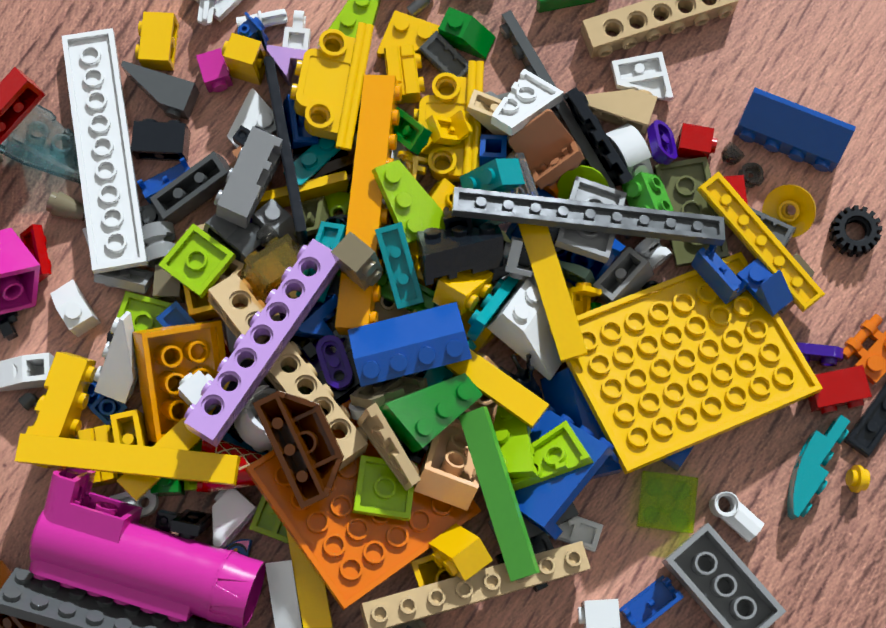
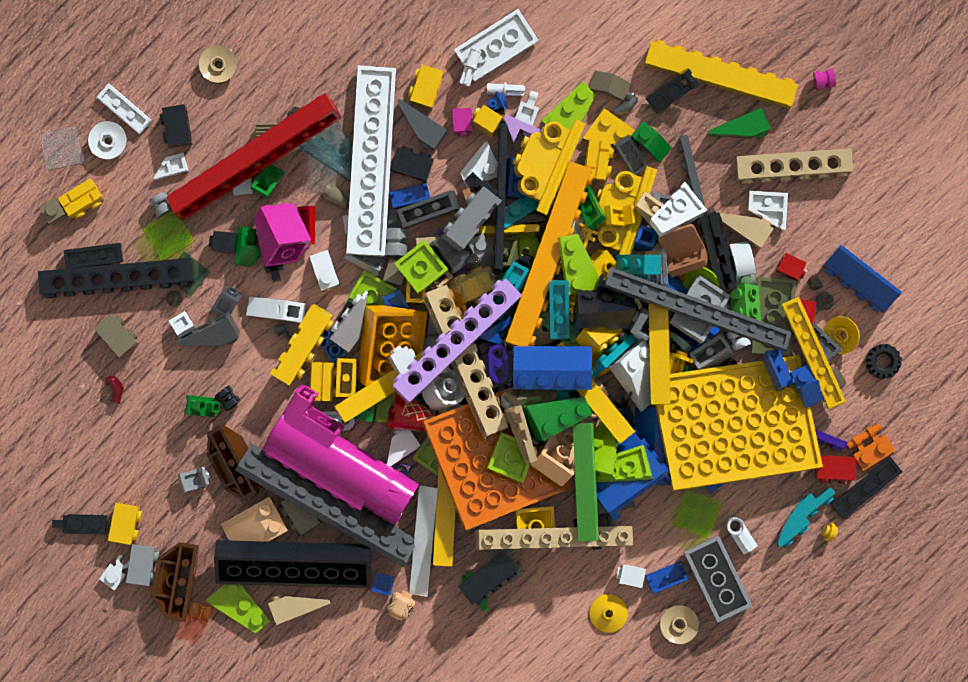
camera: 10 degrees right, 10 degrees up
(128, 459) = (346, 395): yellow tile -> none
(186, 524) = (372, 444): black hinge -> none
(302, 444) = (465, 418): reddish brown wedge -> none
(357, 261) = (532, 303): dark tan brick -> none
(459, 552) = (549, 513): yellow brick -> none
(582, 530) = (634, 518): white tile -> none
(662, 142) = (767, 262): dark purple plate -> none

